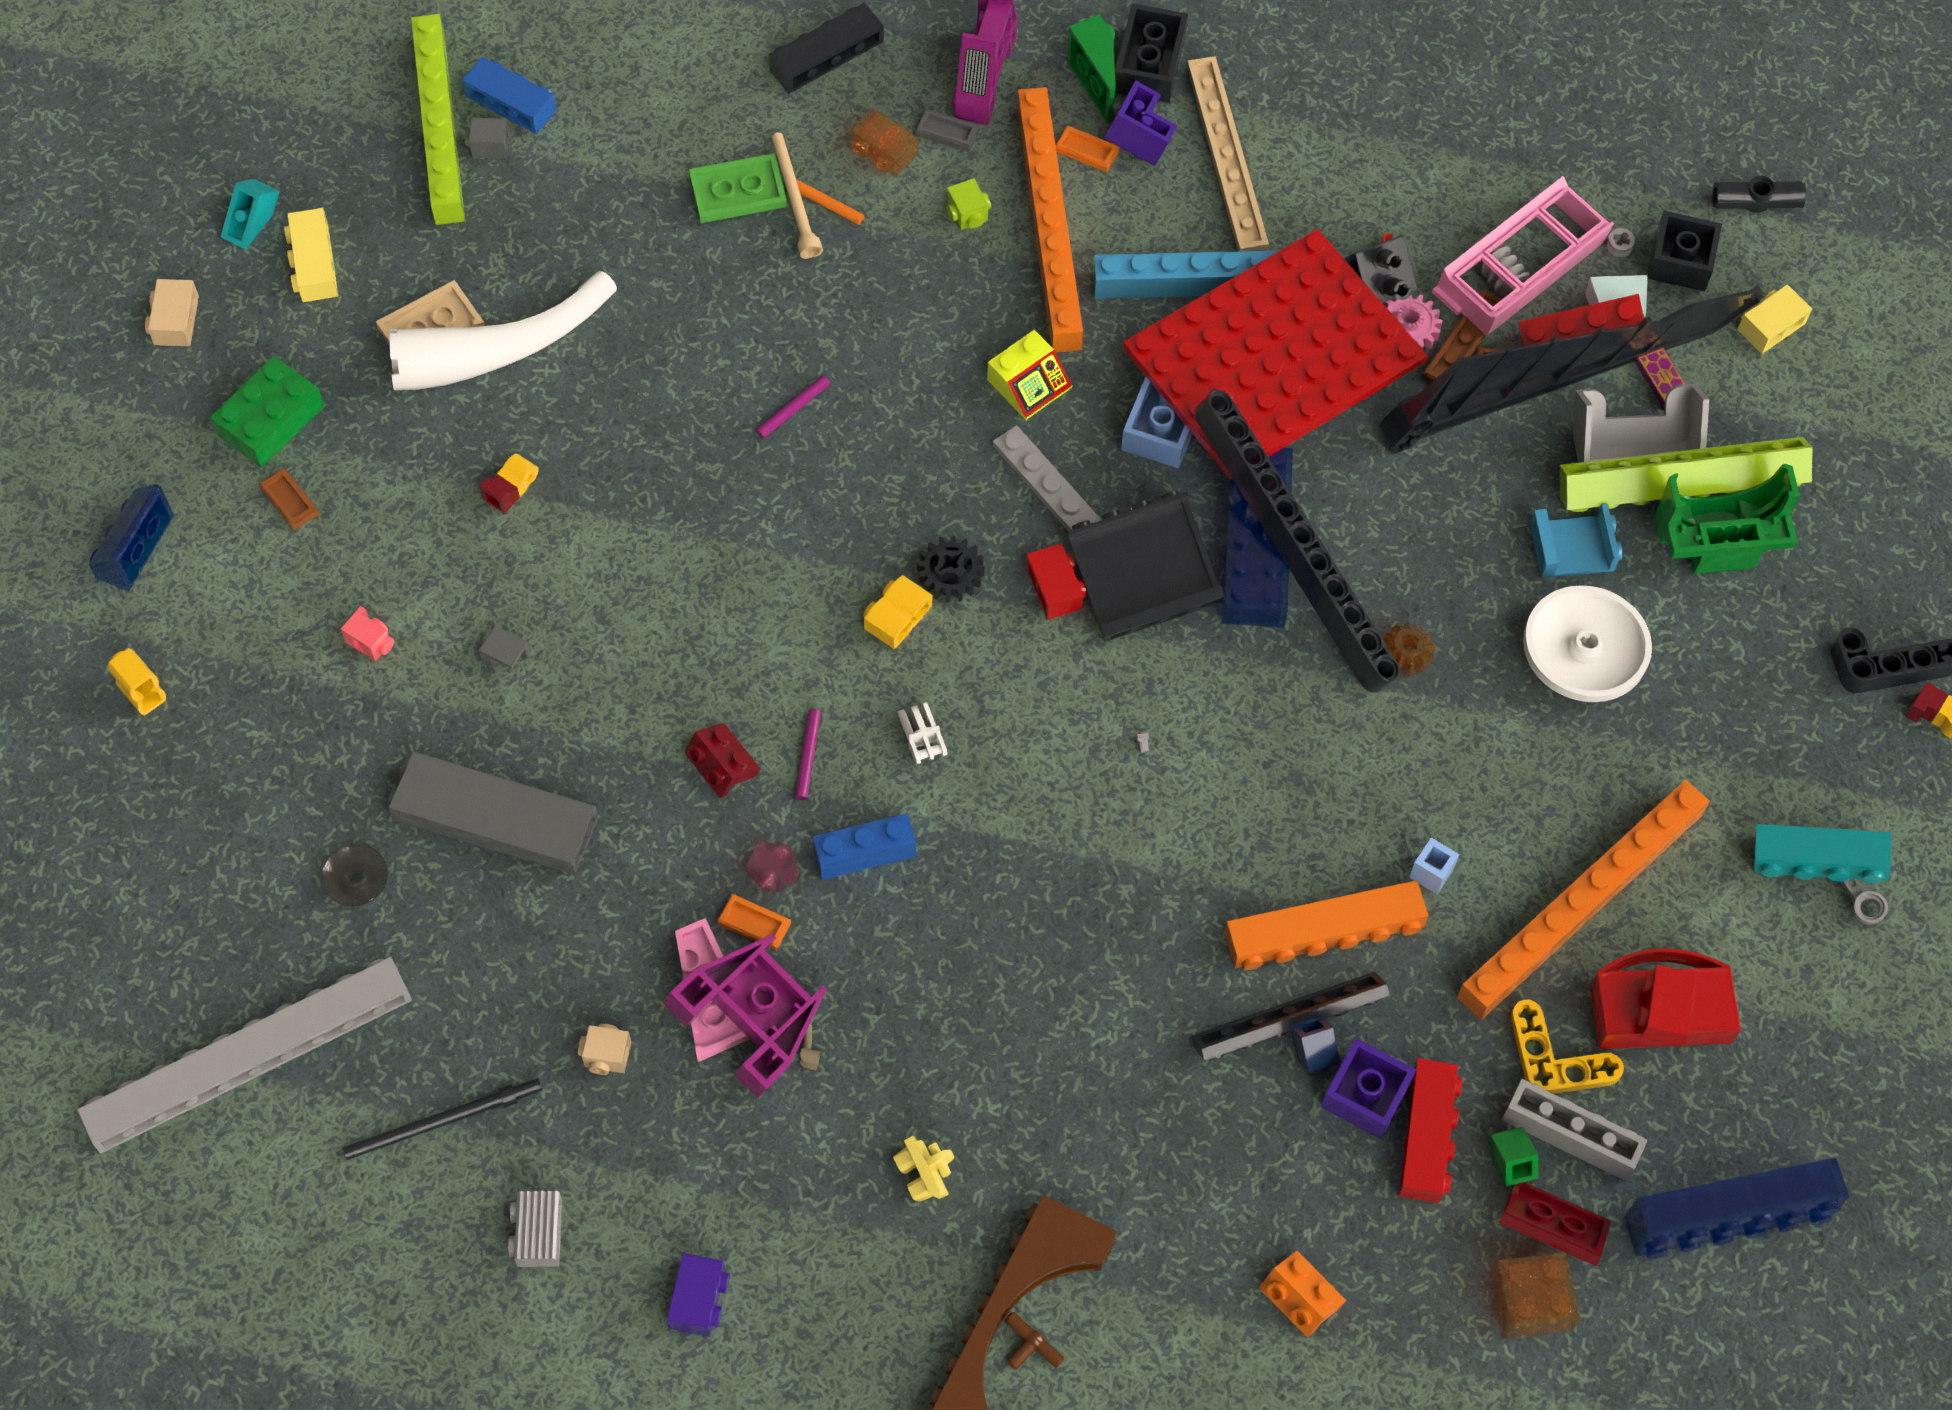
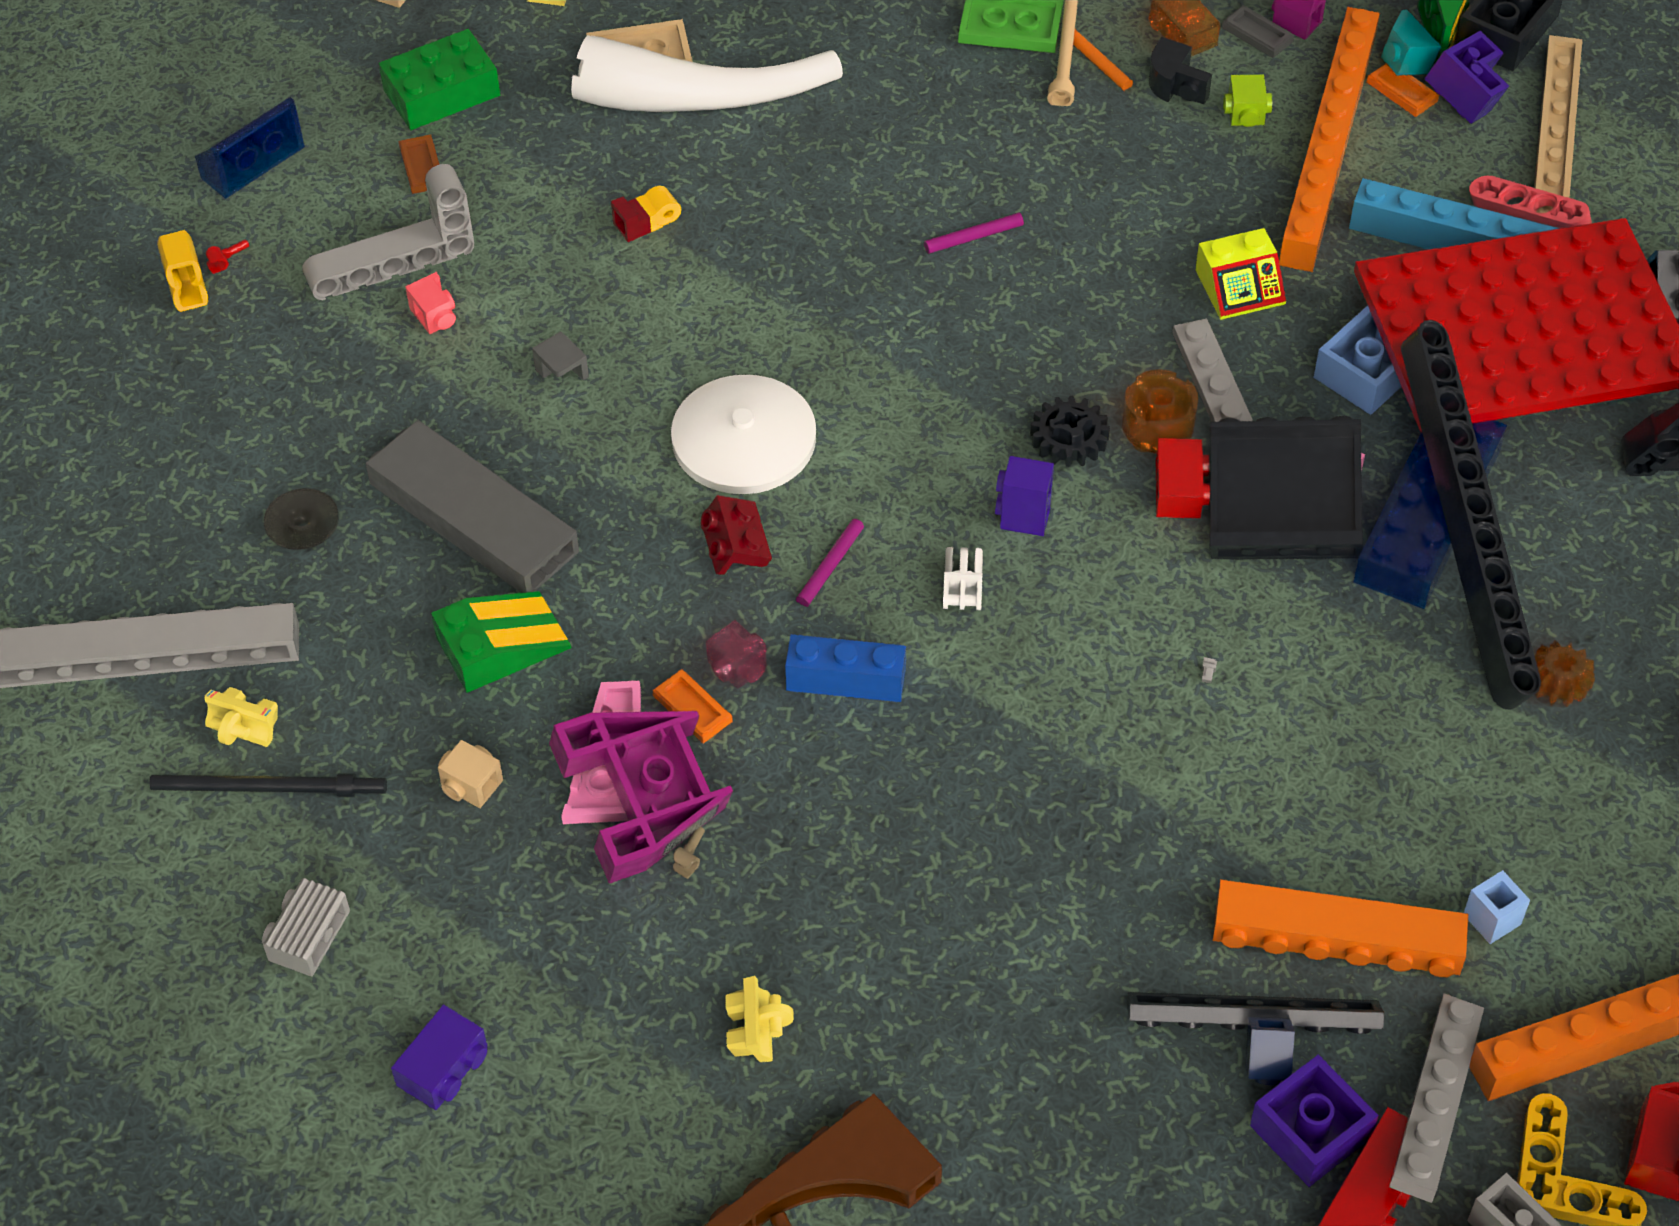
camera: 25 degrees right, 10 degrees down
(153, 653) = (218, 258): none -> red hand
(315, 591) = (402, 249): none -> light grey beam
(392, 1073) = (236, 717): none -> light yellow hips
(570, 920) = (497, 636): none -> green slope
(685, 663) = (743, 434): none -> white dish
(894, 201) = (1173, 75): none -> black brick
(897, 611) = (984, 453): yellow brick -> none
(943, 644) = (1025, 495): none -> dark purple brick
(1016, 527) = (1159, 408): none -> clear orange brick
(1079, 109) = (1410, 47): none -> teal slope
(1235, 228) = (1494, 193): none -> coral beam
(1449, 1036) = (1437, 1098): none -> light grey plate

